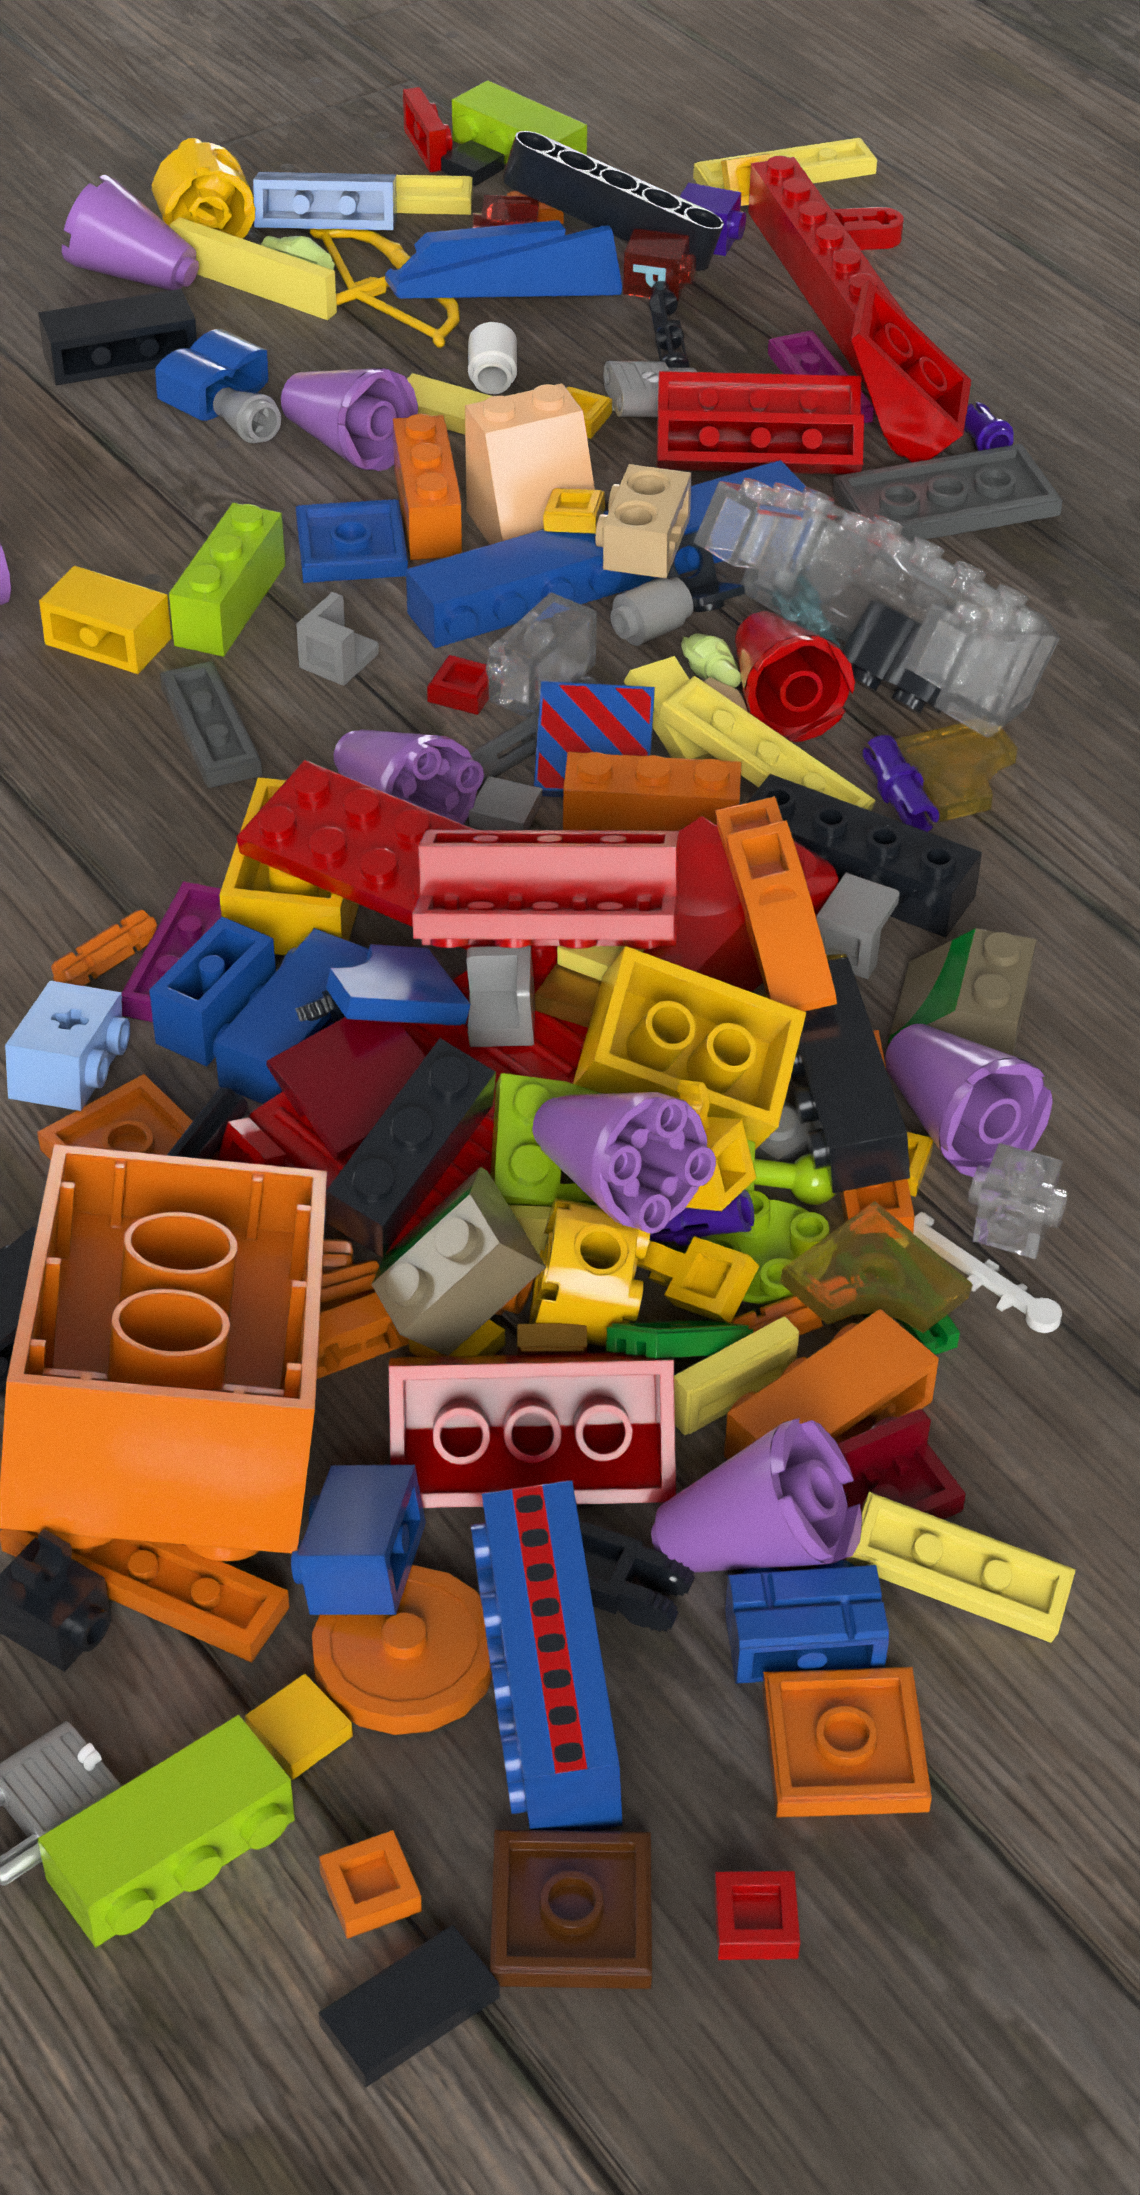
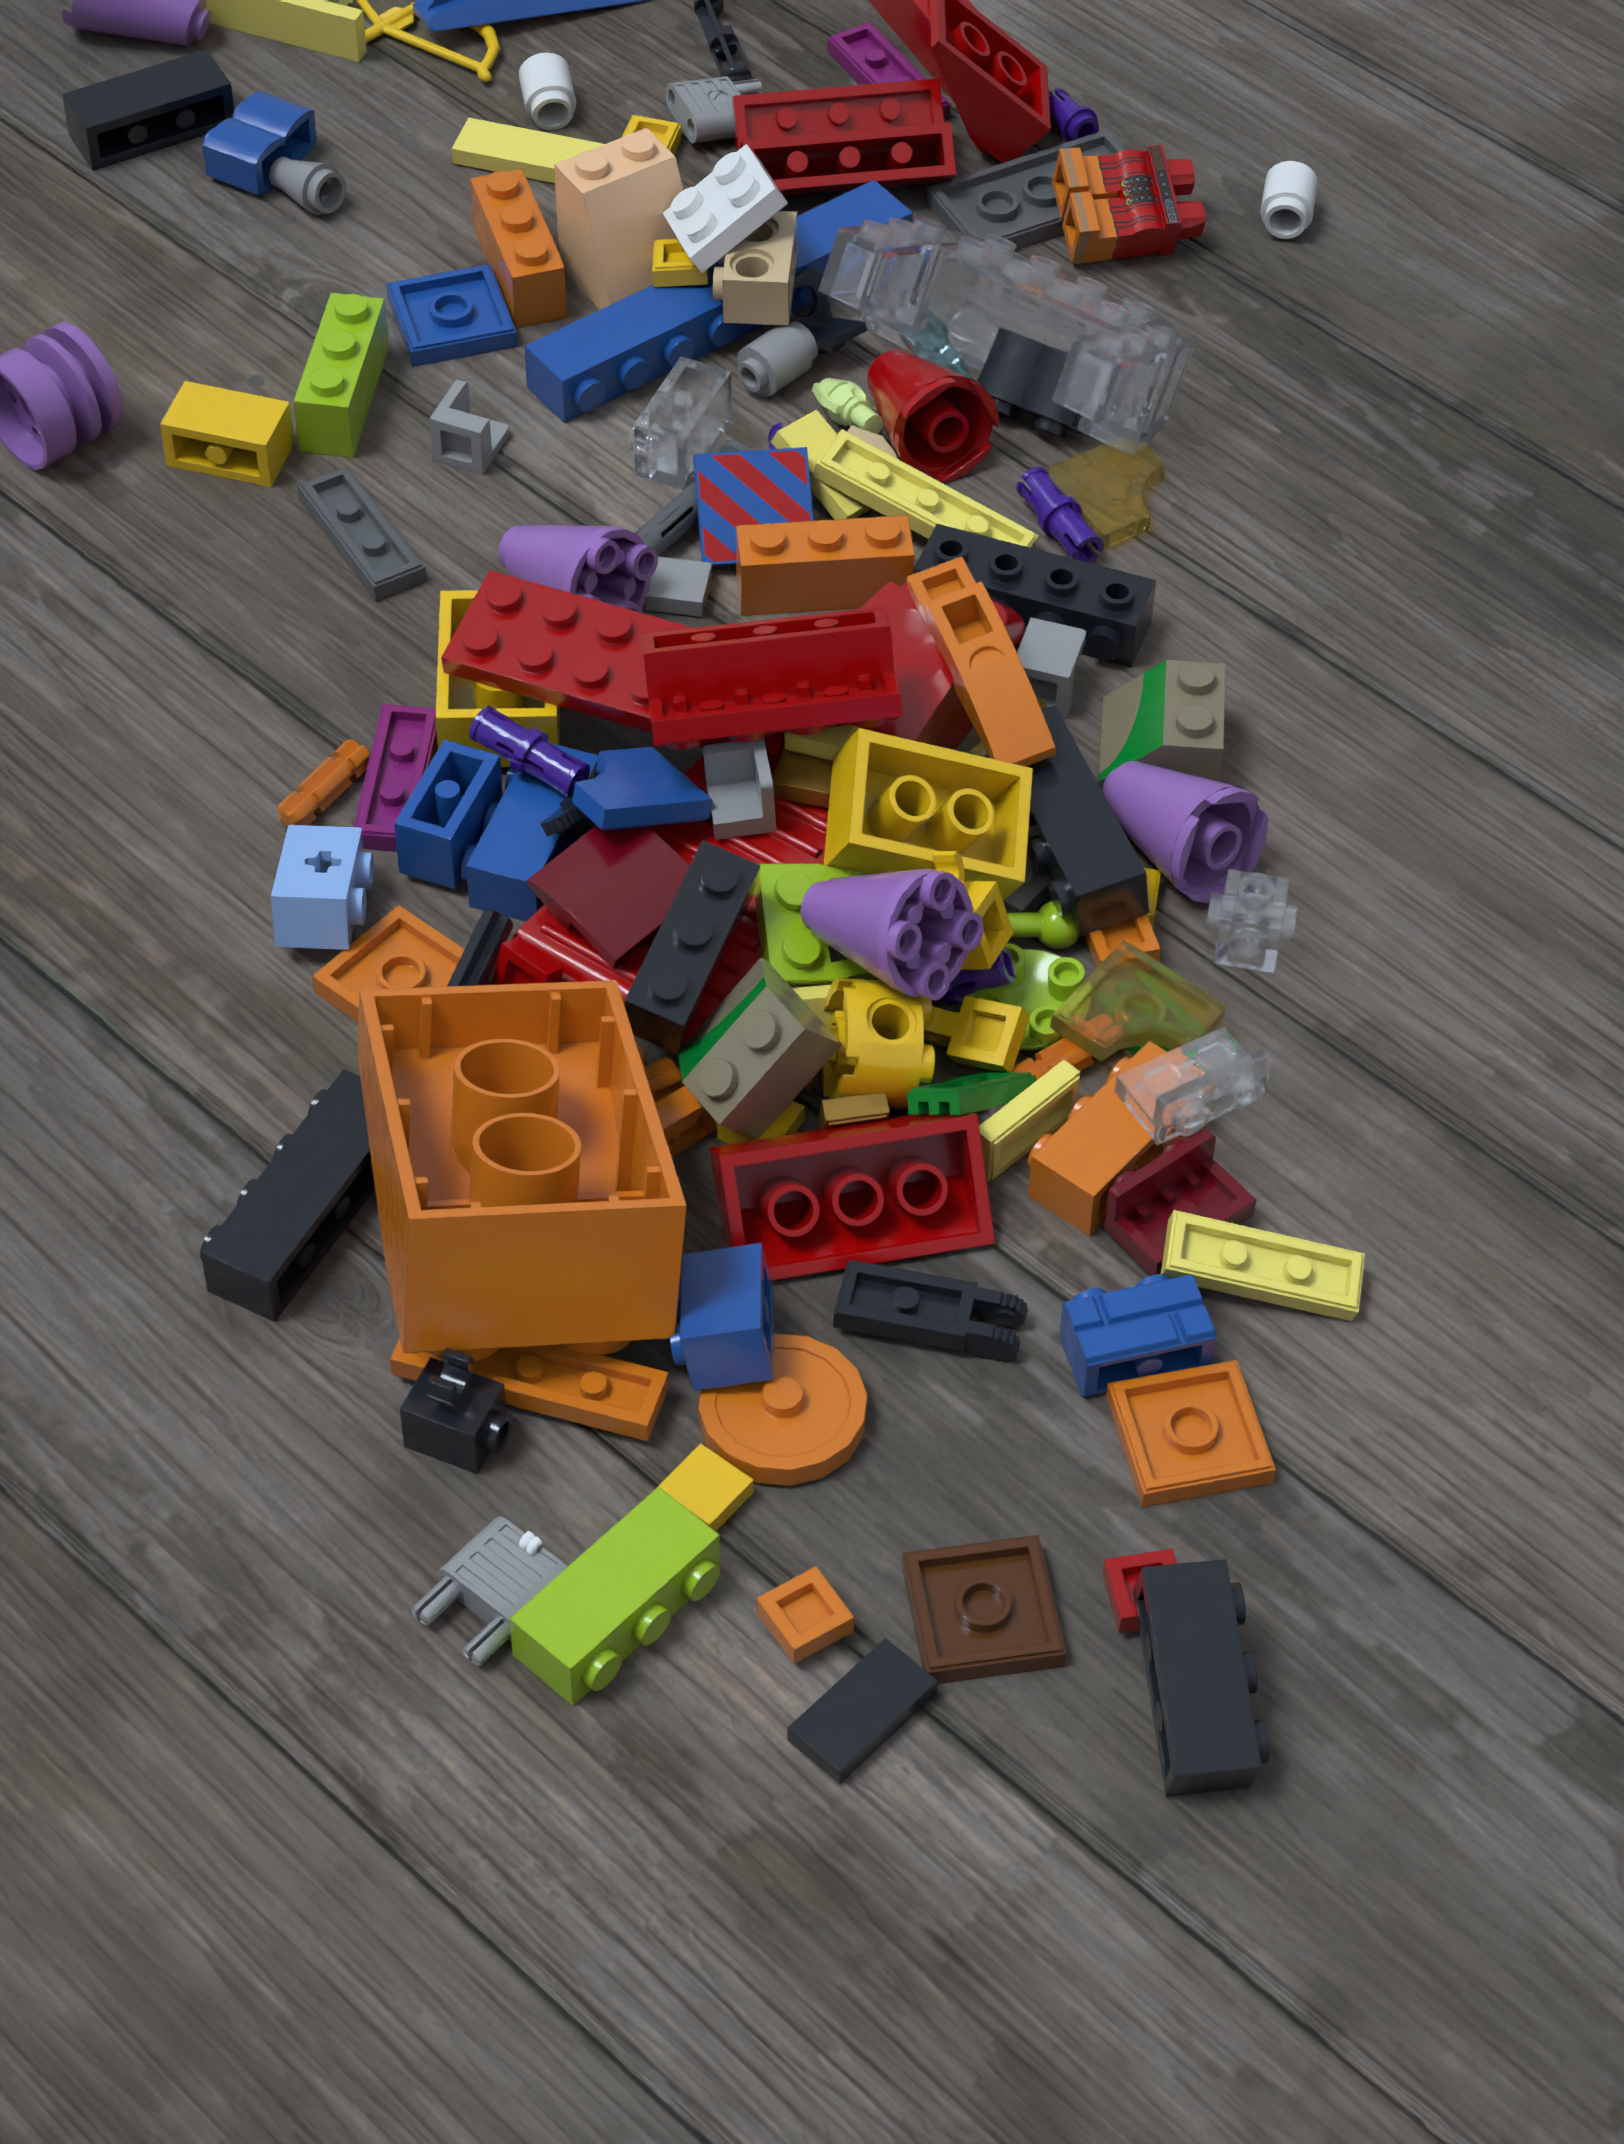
camera: 10 degrees left, 5 degrees up
(300, 935) = (528, 750): none -> dark purple pin
(351, 411) = (419, 172): medium lavender cone -> none
(460, 685) = (603, 461): red tile -> none
(546, 1660) = (926, 1397): blue brick -> none
(620, 460) = (724, 207): none -> white plate
(765, 1507) = (1083, 1237): medium lavender cone -> none
(793, 2030) = (1199, 1677): none -> black brick
(916, 1361) = (1193, 1085): none -> clear bracket
(1023, 507) = (1124, 203): none -> hips
(1041, 1313) = (1289, 1023): white piece -> none

